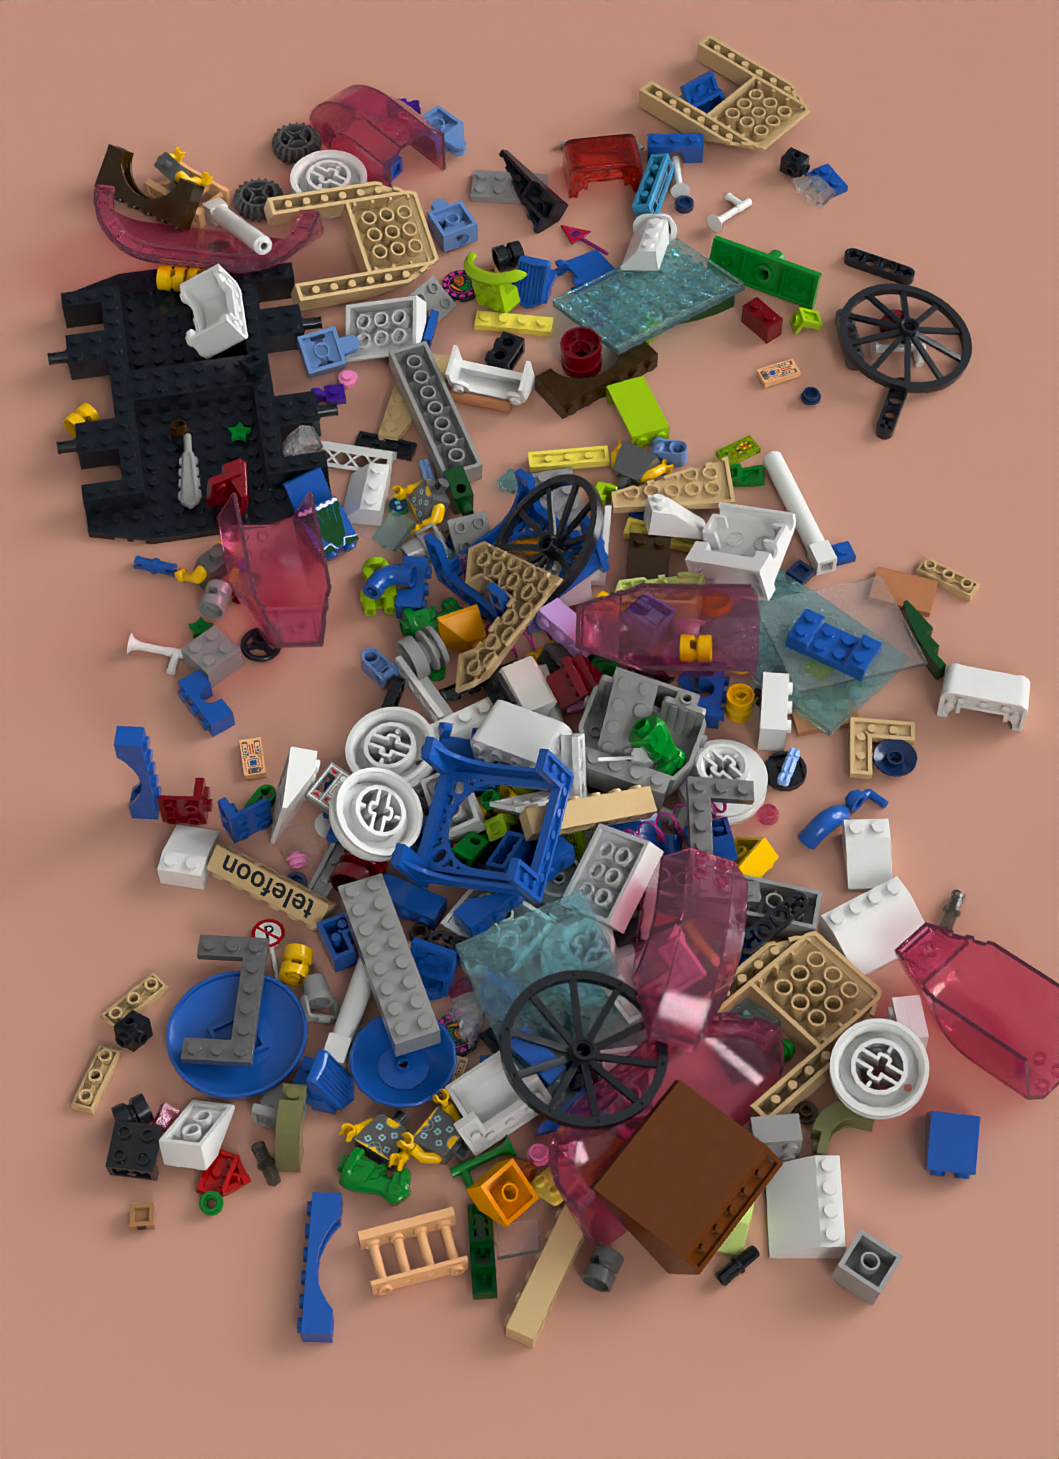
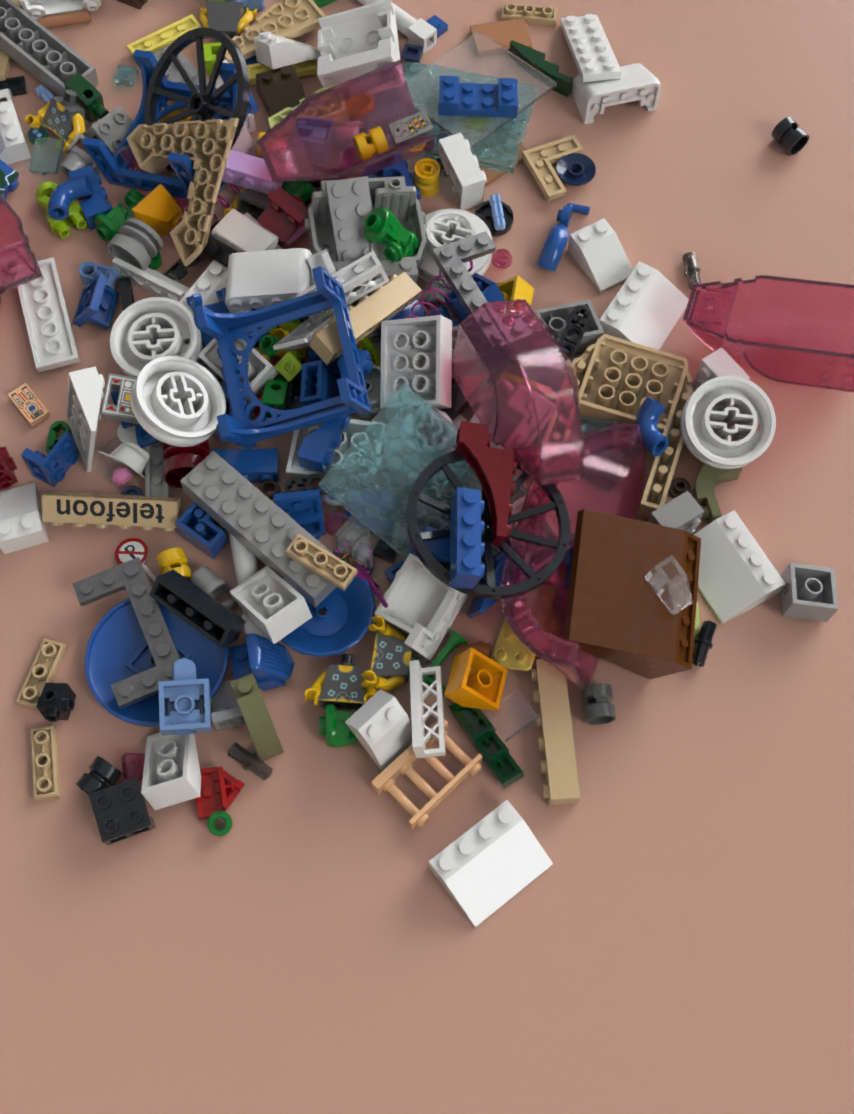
camera: 30 degrees left, 10 degrees up
(142, 1216) = (161, 869): medium nougat plate -> none
(236, 1081) = (184, 701): none -> medium blue brick
(292, 1006) = (197, 608): none -> black brick
(312, 686) = (48, 319): none -> white plate
(312, 846) = (129, 455): none -> white piece
(325, 1219) = (376, 874): blue arch -> none
(358, 1034) = (271, 604): none -> white slope
(362, 692) = (96, 303): none -> blue bracket
(392, 1189) = (382, 728): none -> white slope
(422, 1025) = (332, 569): none -> tan tile
(422, 1356) = (490, 863): none -> white slope
(435, 1187) = (417, 710): none -> white fence
(460, 1056) = (364, 575): none -> magenta piece
(538, 1154) = (484, 632): bright pink plate -> none
(547, 1051) = (465, 538): none -> blue brick
(592, 769) = (353, 275): none -> white fence
(613, 1005) = (494, 472): none -> dark red arch
(649, 762) = (393, 252): none -> green plate
(716, 1185) = (670, 584): none -> clear slope
(744, 648) = (410, 127): none -> light grey tile
(798, 1037) = (647, 419): none -> blue cylinder
(951, 1144) = (809, 457): blue slope -> none
(982, 641) = (590, 48): none -> white plate

